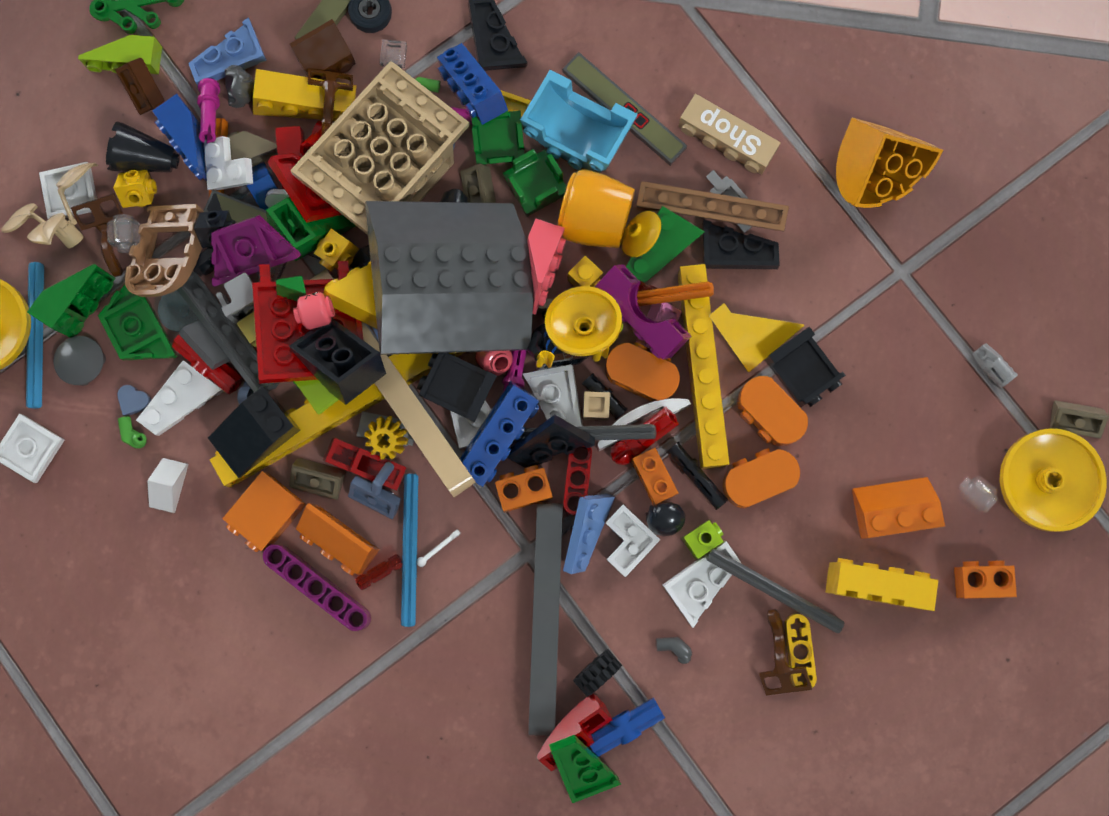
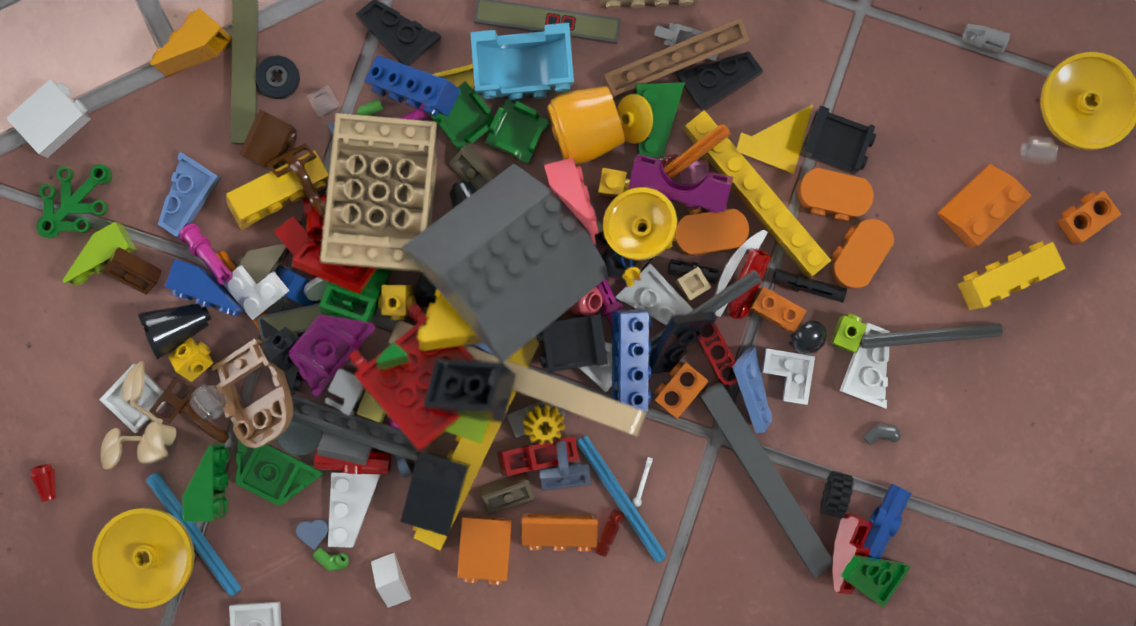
camera: 40 degrees left, 5 degrees up
(78, 360) = (245, 530): dark grey dish -> none
(239, 86) = (215, 216): dark grey hair -> none
(305, 582) = (557, 583): magenta beam -> none
(314, 310) = (423, 363): coral head -> none
(782, 669) = (977, 393): reddish brown piece -> none
(803, 631) = (991, 370): yellow beam -> none
(1078, 419) = (1078, 36): dark tan slope -> none

